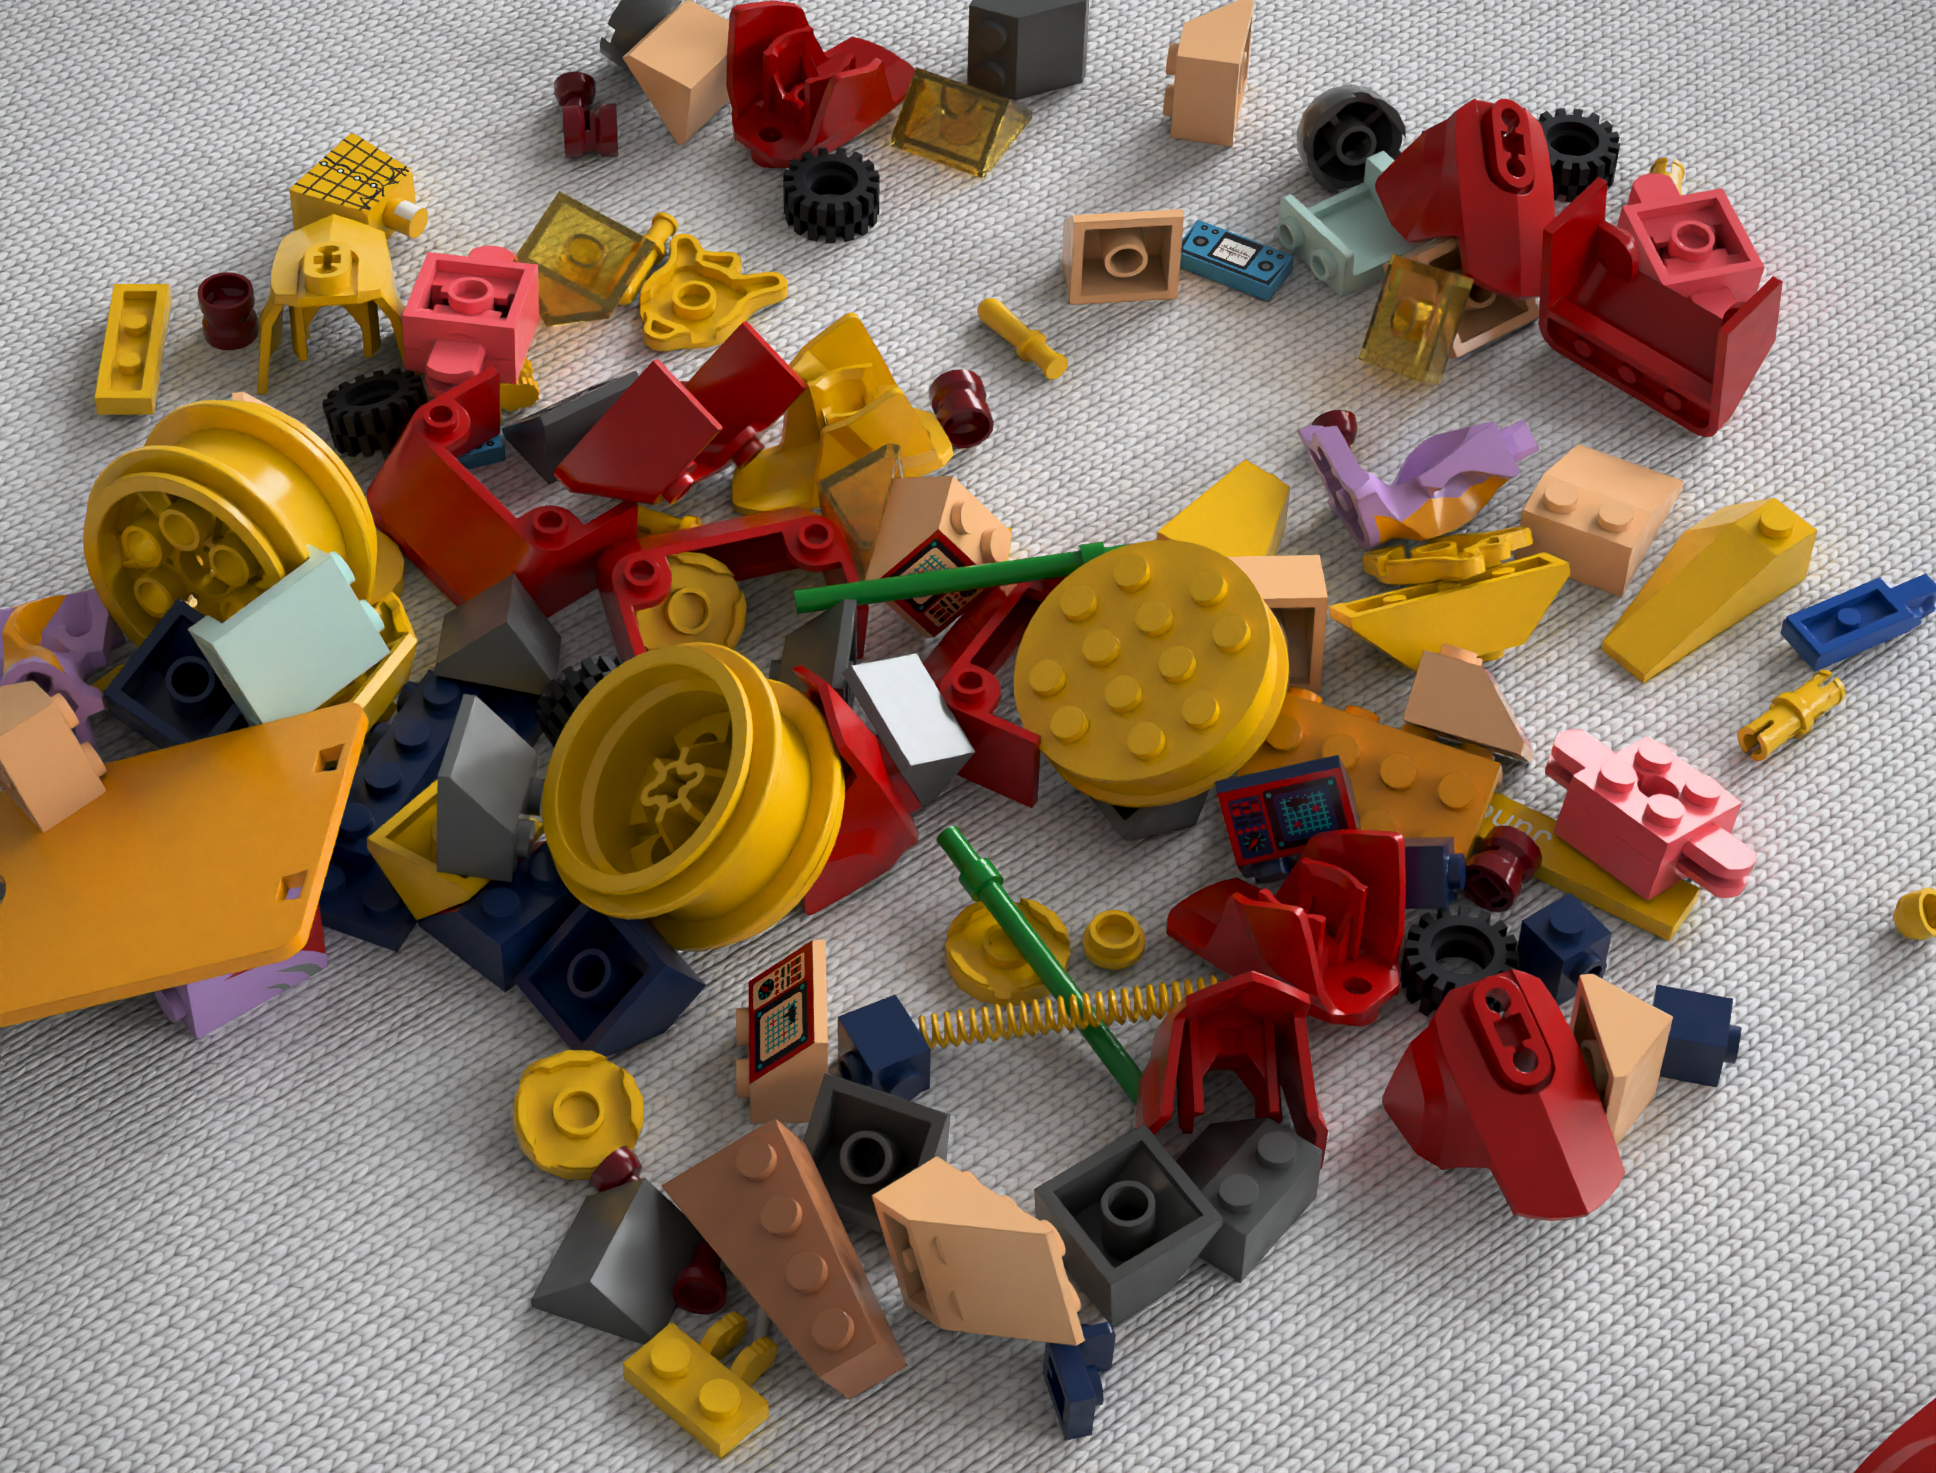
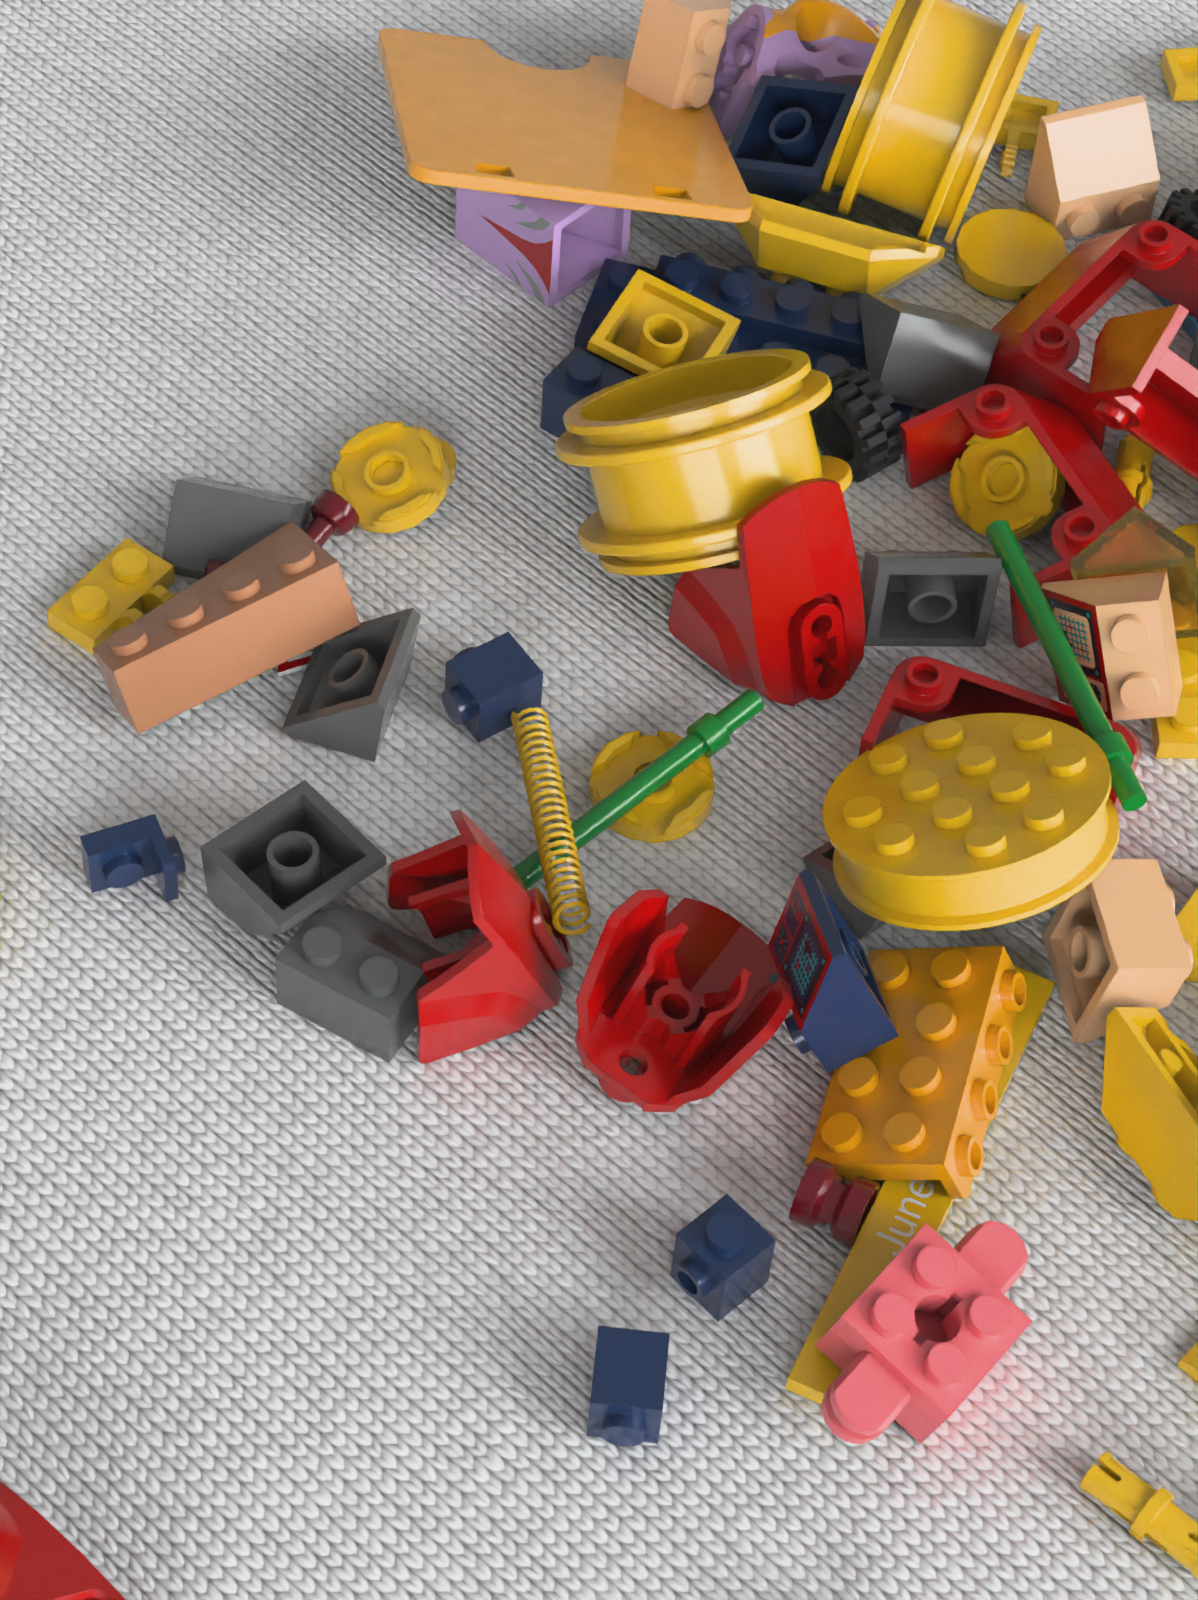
camera: 80 degrees right, 5 degrees up
(294, 641) = (817, 158): light aqua panel -> none
(486, 796) = (675, 306): dark grey slope -> none
(608, 982) = (528, 487): dark blue slope -> none
(785, 1037) = (482, 603): light nougat slope -> none
(911, 722) = (865, 632): slope -> none
(976, 1258) = (227, 738): light nougat slope -> none
(1113, 940) = (675, 866): yellow plate -> none
(1432, 872) = (793, 1105): dark blue brick -> none
(1454, 937) = (691, 1134): black tyre -> none
(1464, 704) = (1031, 1143): light nougat slope -> none
(1530, 1126) = (487, 1202): red piece -> none
(1621, 1046) = (547, 1288): light nougat slope -> none

